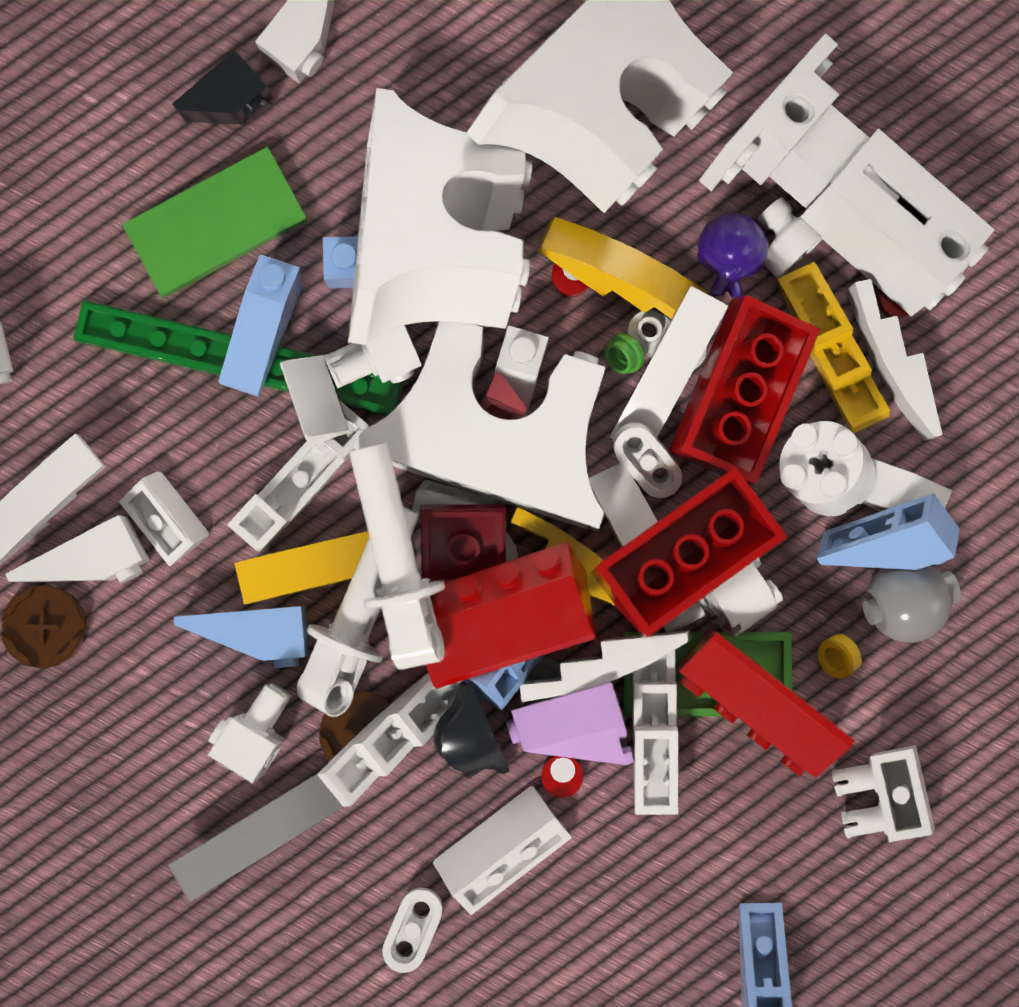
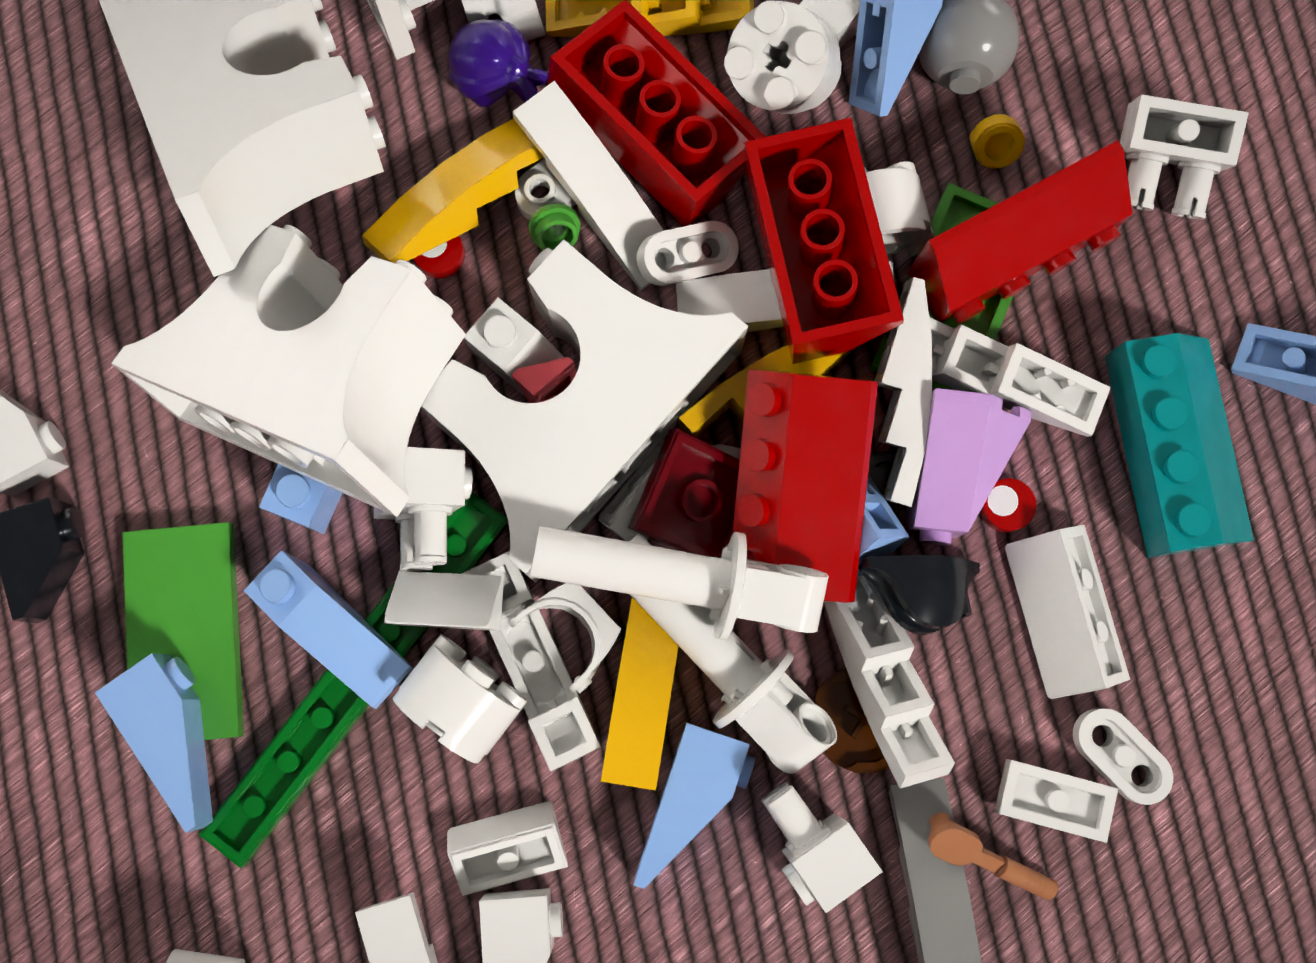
camera: 65 degrees left, 5 degrees down
(144, 242) = (164, 729): none -> light blue slope
(249, 439) = (459, 700): none -> white brick
(296, 836) = (962, 846): none -> nougat piece
(344, 517) = (579, 603): none -> white helmet
(360, 894) = (1056, 800): none -> white plate
(661, 886) = (1177, 444): none -> teal slope

